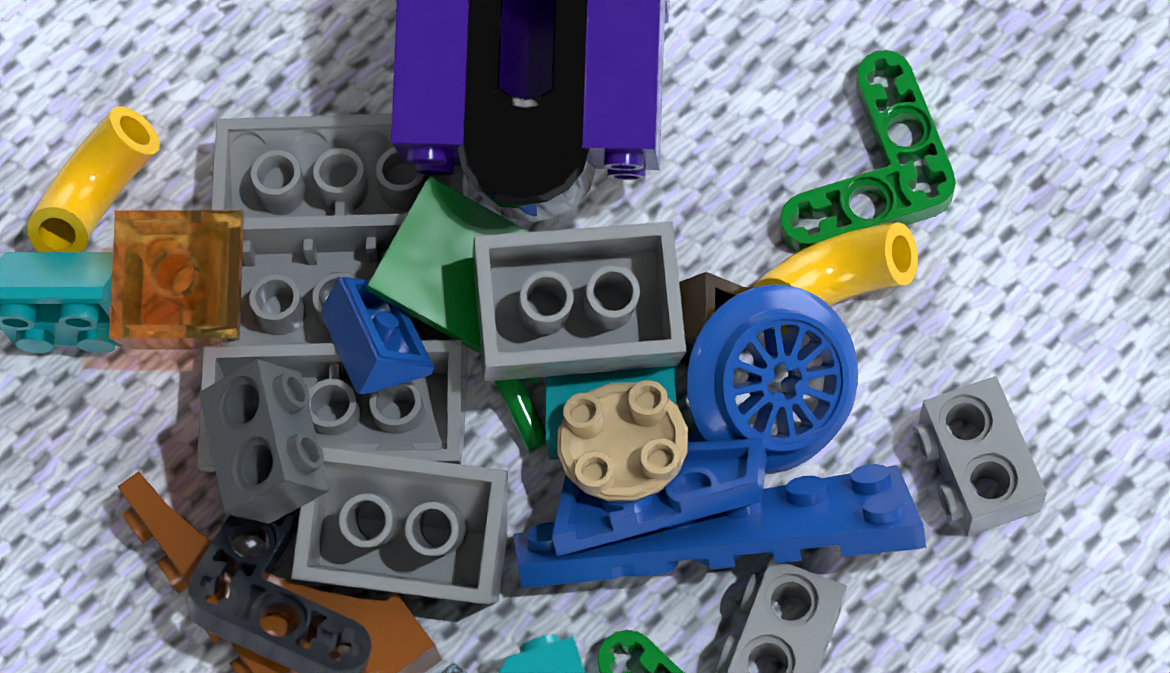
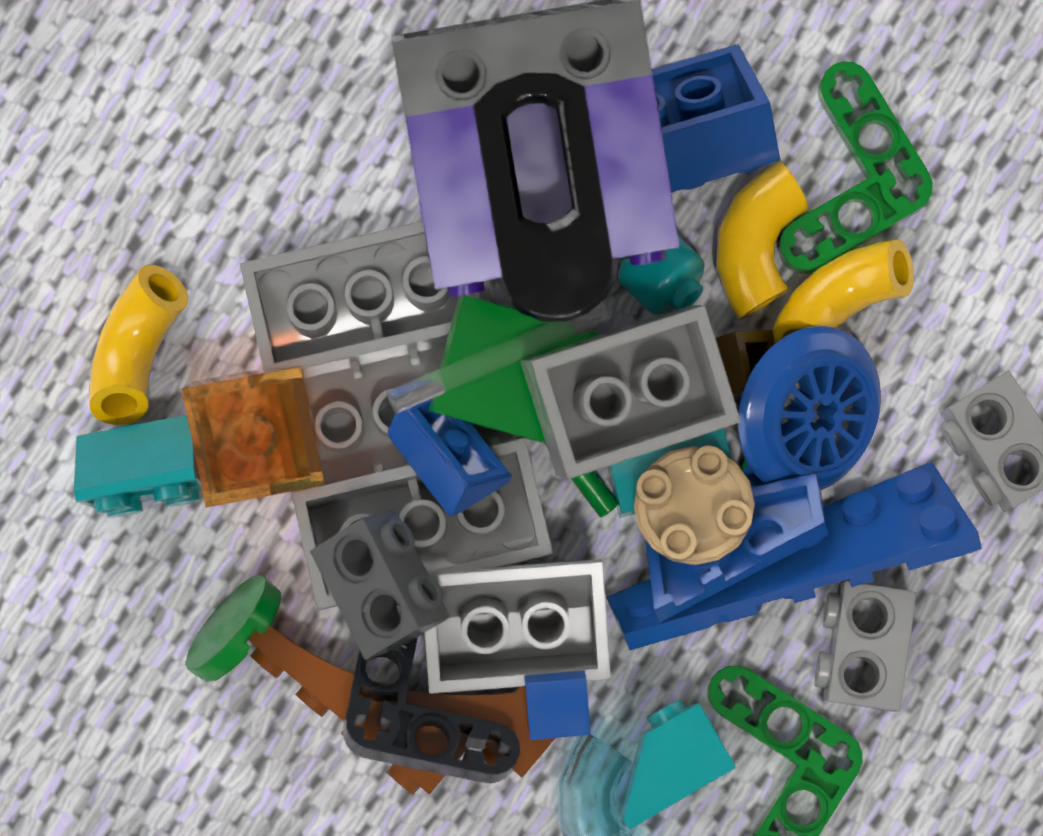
camera: 20 degrees left, 15 degrees up
(107, 476) = (224, 636): none -> green tile
(424, 617) = (557, 705): none -> blue tile
(431, 245) = (494, 358): none -> clear bar
(651, 201) = (665, 283): none -> teal head
(728, 82) = (713, 118): none -> blue slope
(749, 200) = (750, 235): none -> yellow cylinder

